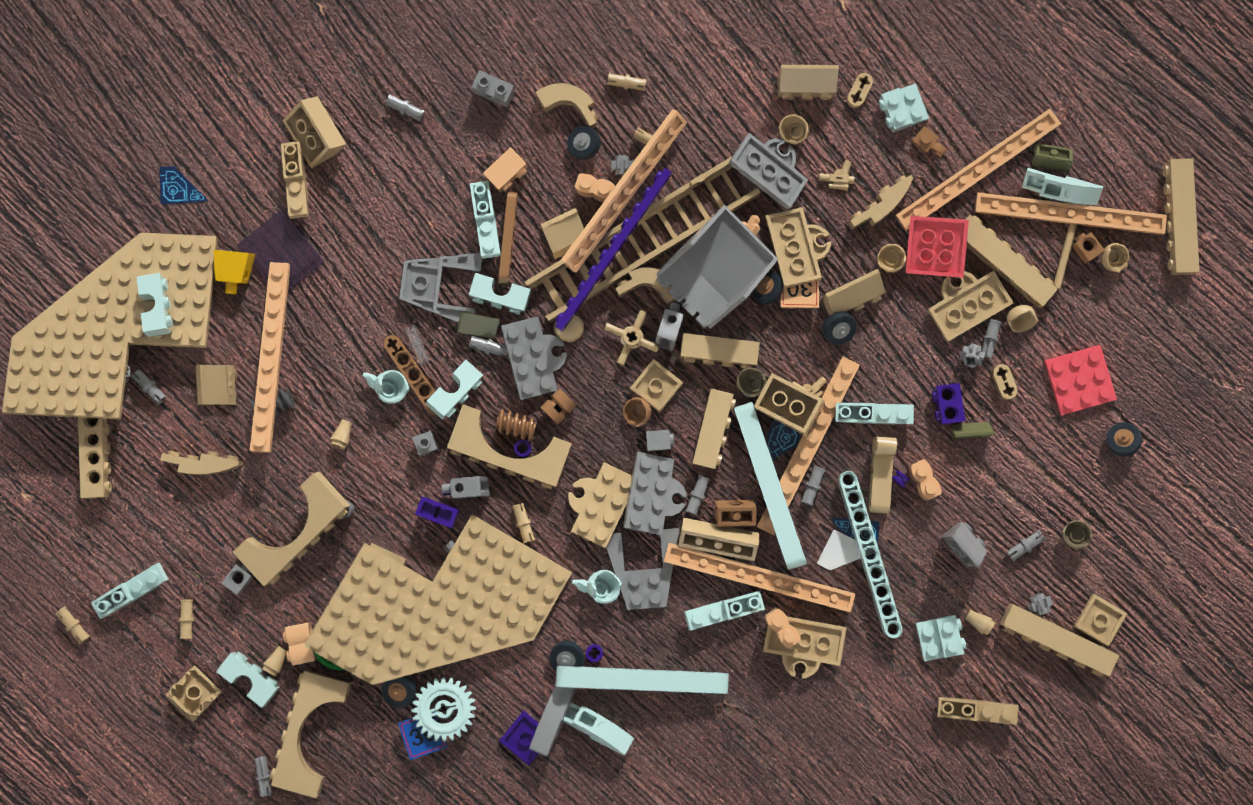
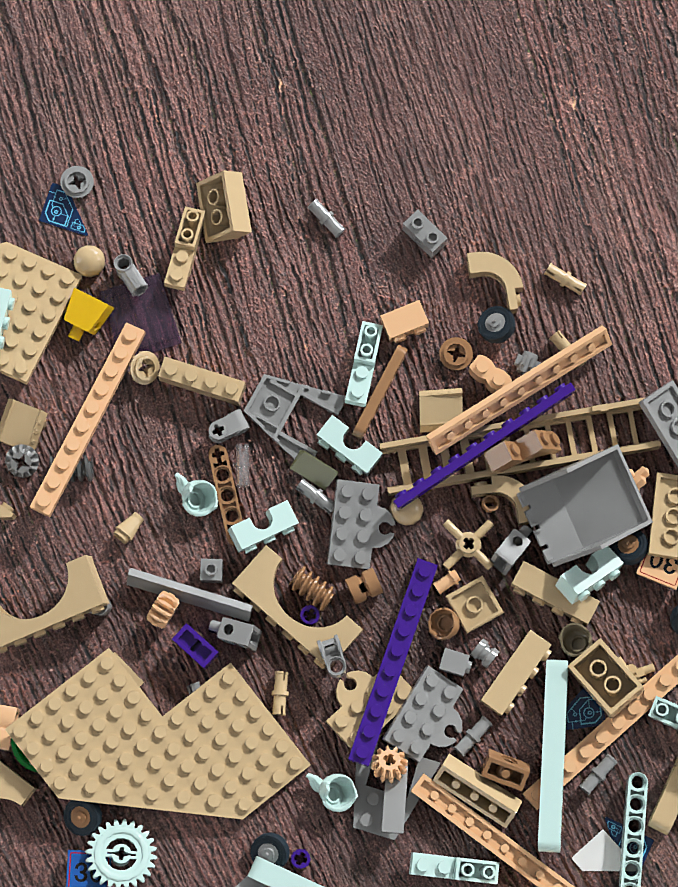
camera: 25 degrees right, 5 degrees down
(171, 158) = (82, 174): none -> light grey gear
(217, 222) = (89, 261): none -> tan hair
(234, 408) = (31, 459): none -> light grey gear
(257, 220) = (130, 275): none -> light grey piece
(307, 297) = (150, 372): none -> tan gear
(354, 287) = (202, 381): none -> tan brick
(394, 313) = (232, 425): none -> light grey piece
(397, 492) = (163, 609): none -> light nougat gear
(415, 471) = (190, 594): none -> light grey tile
(552, 175) = (464, 349): none -> medium nougat gear
(554, 474) = (332, 652): none -> light grey piece
(607, 461) = (392, 662): none -> dark purple plate
(626, 375) = (447, 581): none -> light nougat pin
(634, 540) = (381, 761): none -> light nougat gear
(635, 292) = (489, 499): none -> medium nougat hinge
(649, 237) = (525, 448): none -> medium nougat arch
(651, 567) = (394, 804): none -> light grey slope
(680, 422) = (483, 652): none -> light grey wheel
(736, 335) = (577, 584): none -> light aqua arch

